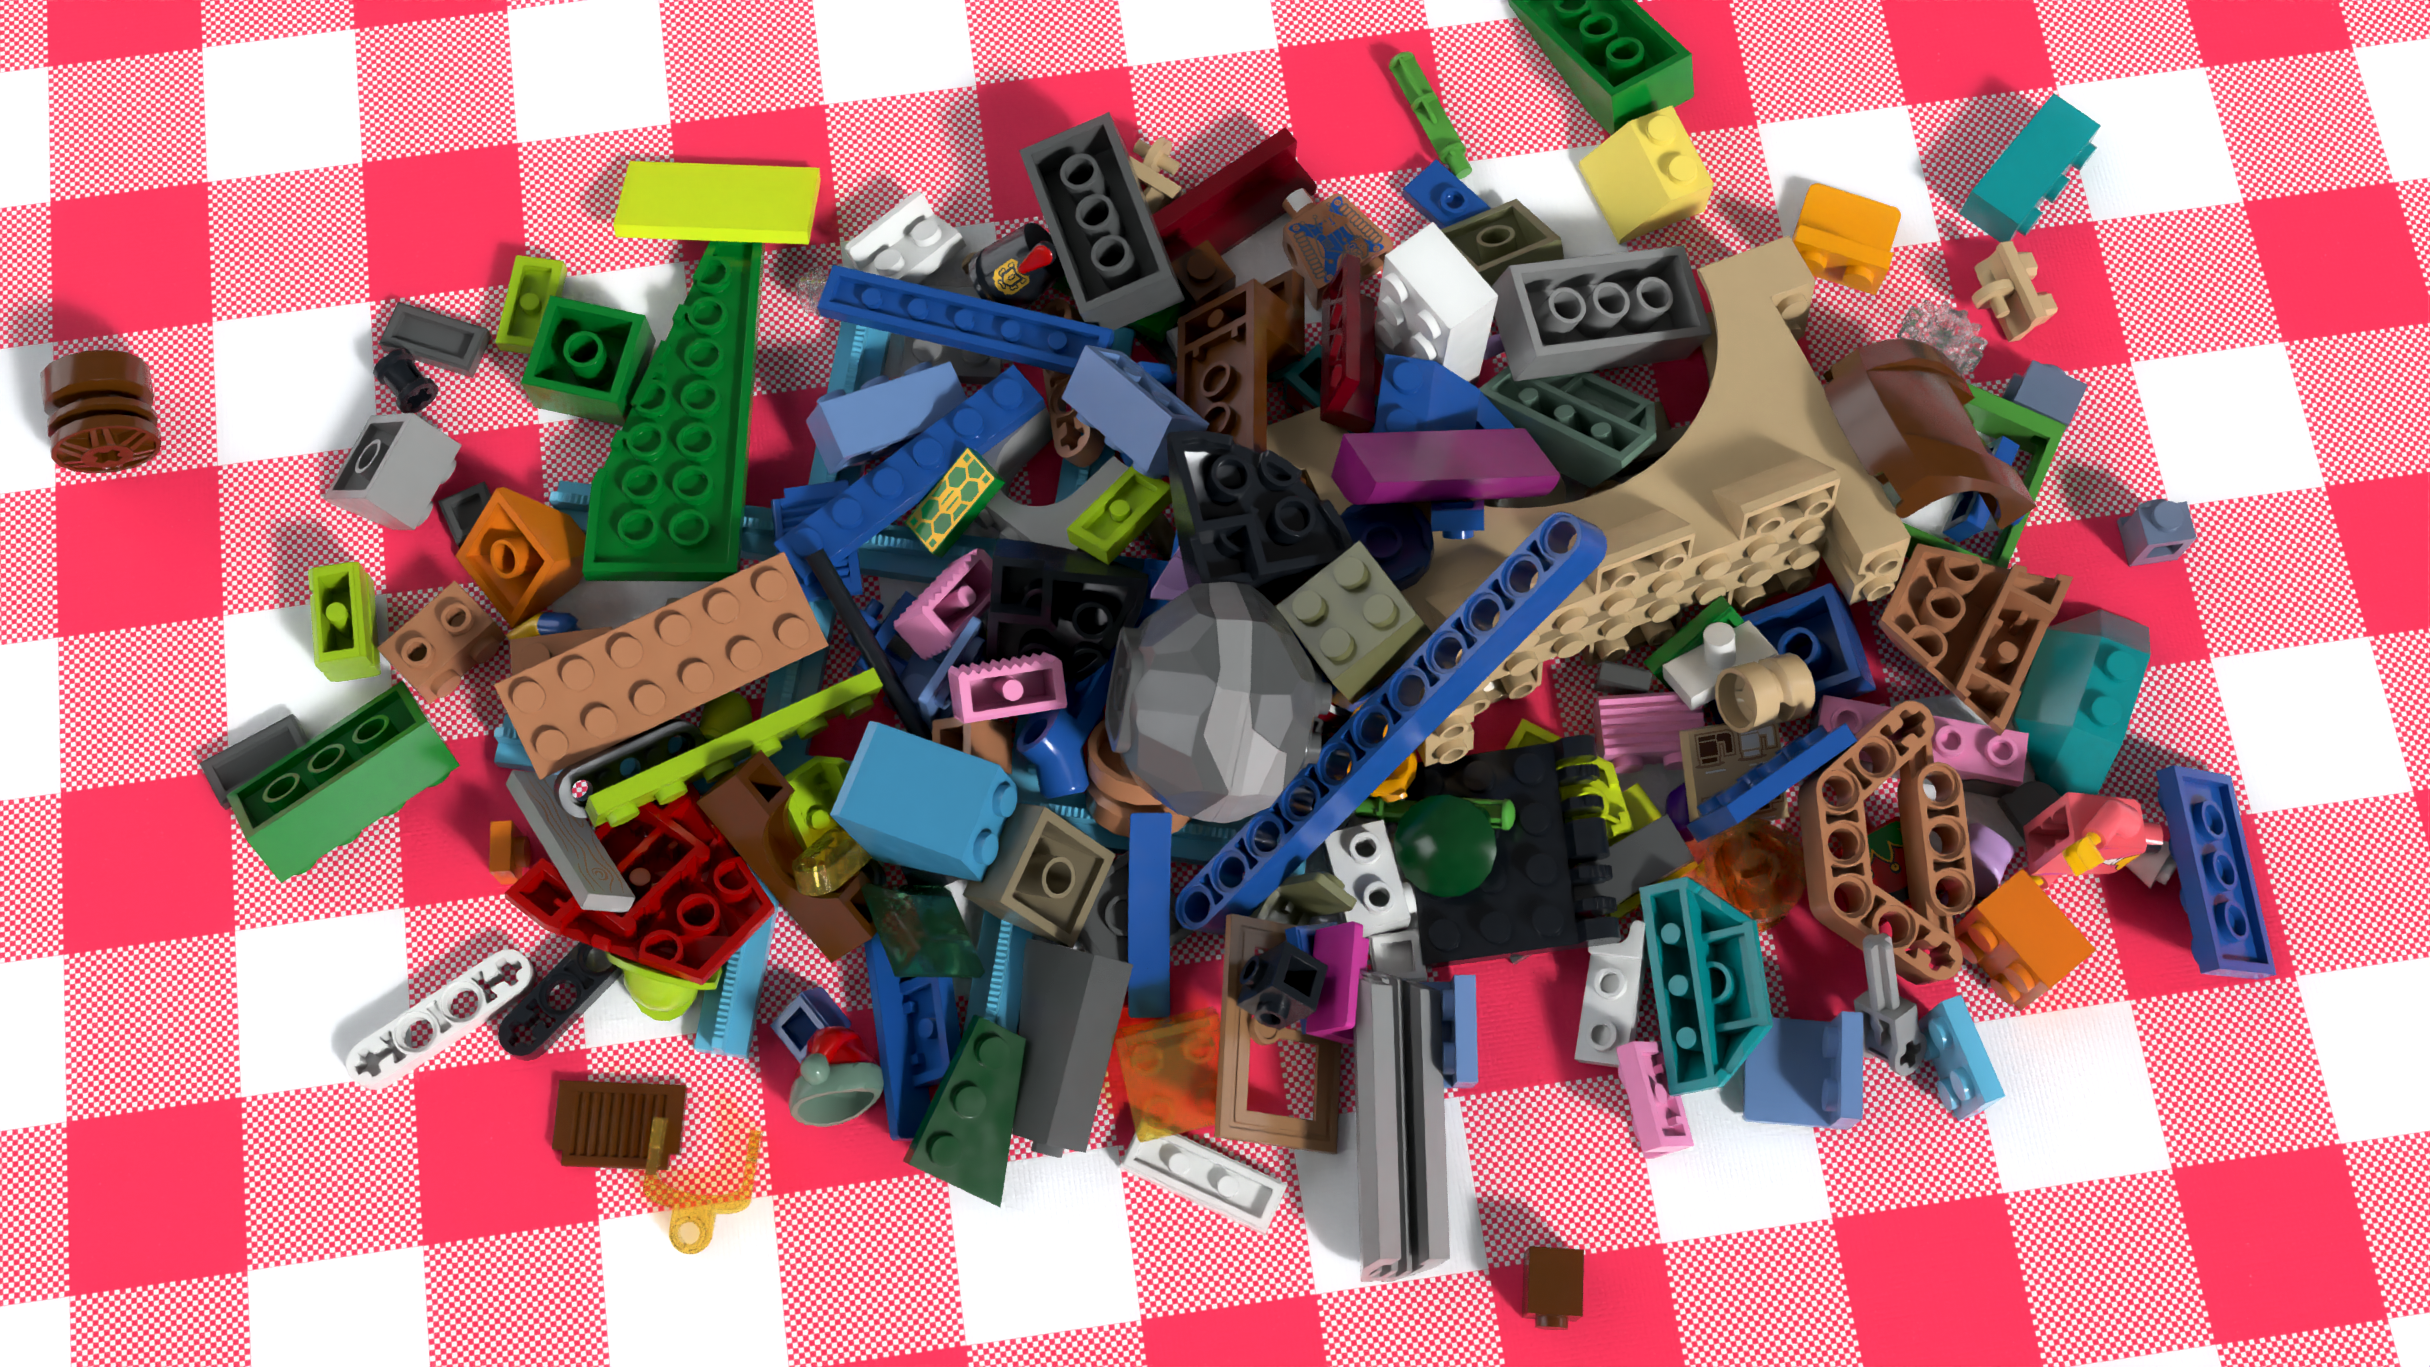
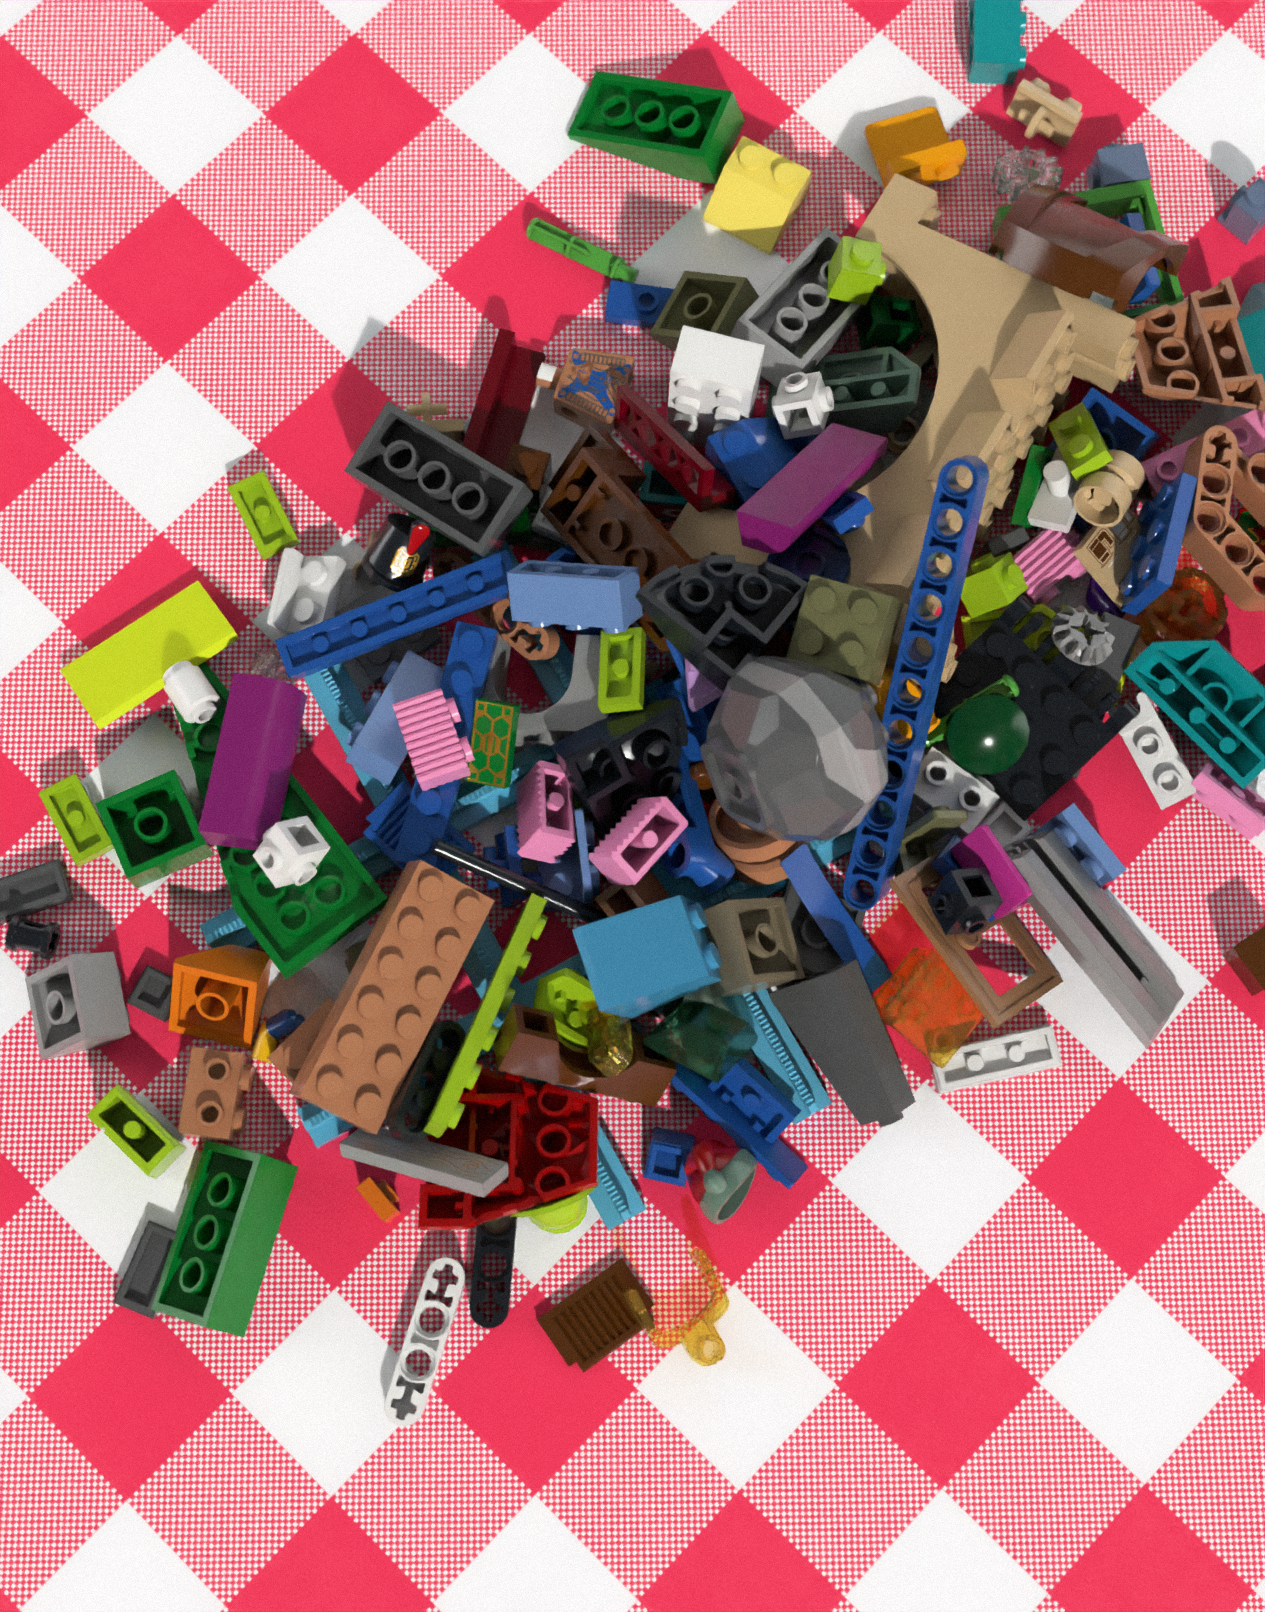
camera: 40 degrees left, 5 degrees up
(678, 461) = (291, 852): none -> white brick
(718, 360) = (252, 761): none -> magenta brick
(720, 258) = (191, 692): none -> white brick
(724, 715) = (457, 1005): lime cone -> none
(892, 452) = (432, 738): none -> bright pink brick
(927, 150) = (263, 515): none -> lime plate
(973, 1113) = (827, 1132): dark green wing -> none
(1511, 392) = (802, 404): none -> white brick
(1570, 703) = (992, 584): none -> lime brick
(1601, 815) = (1073, 642): none -> light grey gear
(1671, 301) = (855, 270): none -> lime brick
(1674, 381) = (888, 323): none -> dark green brick
(1770, 625) = (1080, 441): none -> lime plate

